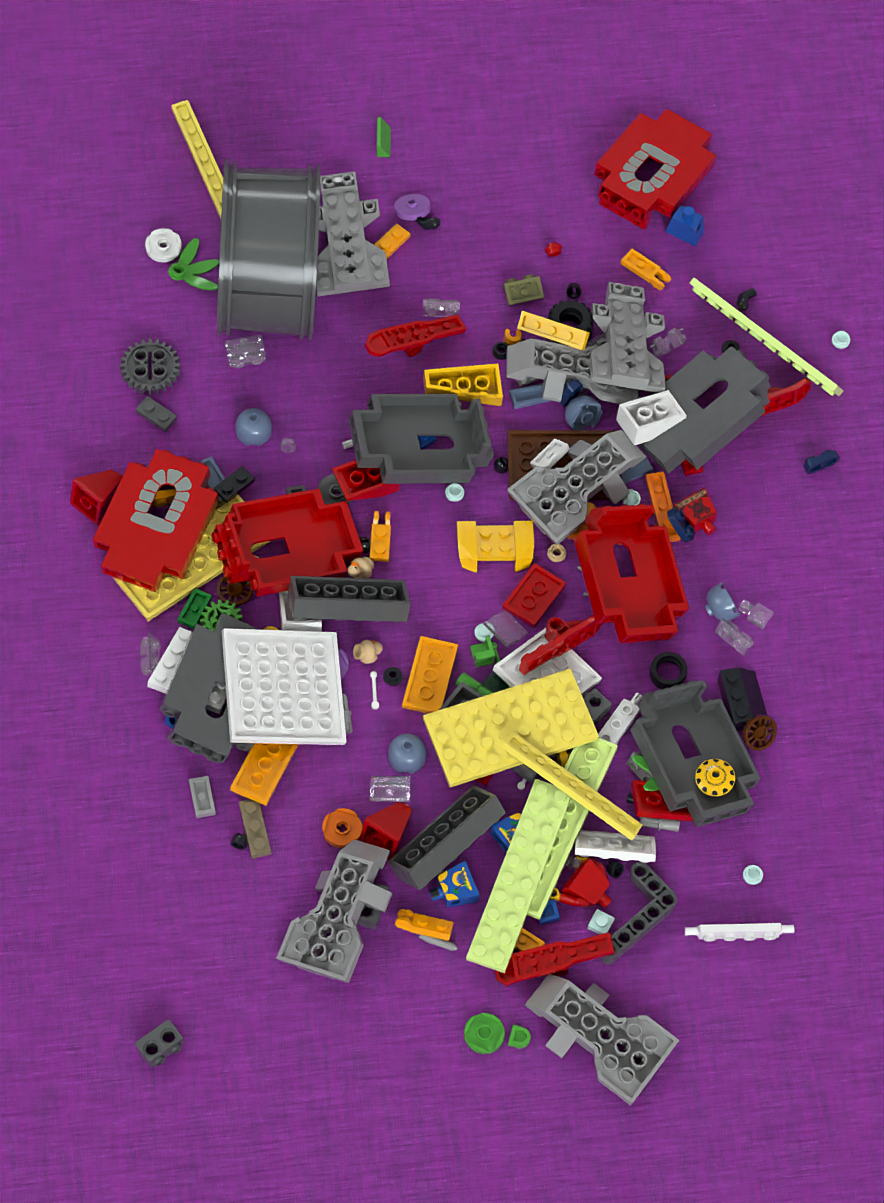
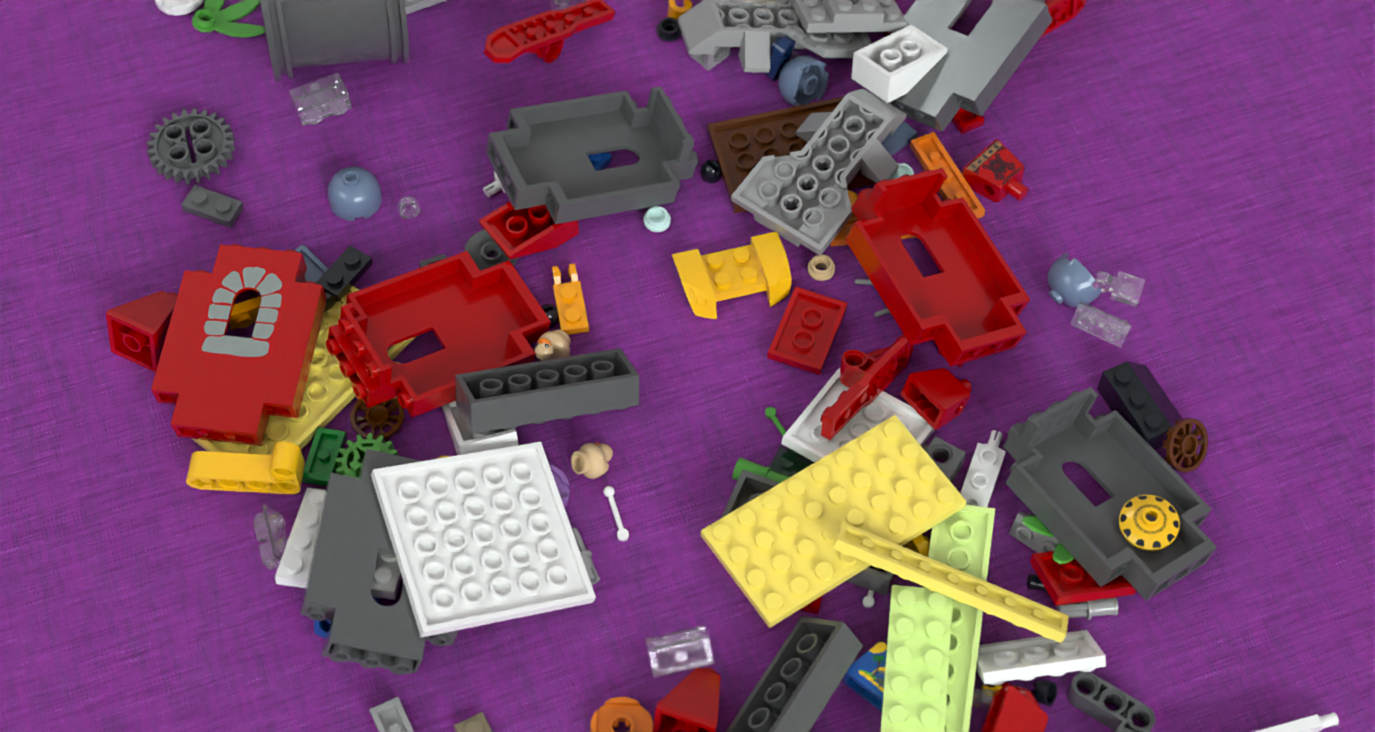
camera: 10 degrees left, 5 degrees down
(144, 609) = (248, 472): none -> yellow beam
(262, 771) = (480, 670): light orange plate -> none
(392, 681) = (634, 494): black plate -> none
(407, 753) = (688, 593): sand blue cylinder -> none
(429, 675) = (691, 474): light orange plate -> none
(467, 382) = (636, 74): yellow wedge -> none
(481, 632) = (752, 397): light aqua plate -> none
(483, 653) = (760, 425): bright green panel -> none
(505, 628) = (781, 384): clear piece -> none
(527, 396) = (722, 78): sand blue tile -> none
(550, 455) = (776, 139): white plate -> none
(606, 660) = (936, 395): none -> red torso
(670, 657) = (1029, 372): black tyre -> none
(680, 524) = (974, 186): dark blue plate -> none
(752, 874) = (1246, 652): light aqua plate -> none
(821, 462) = (1136, 77): dark blue plate -> none

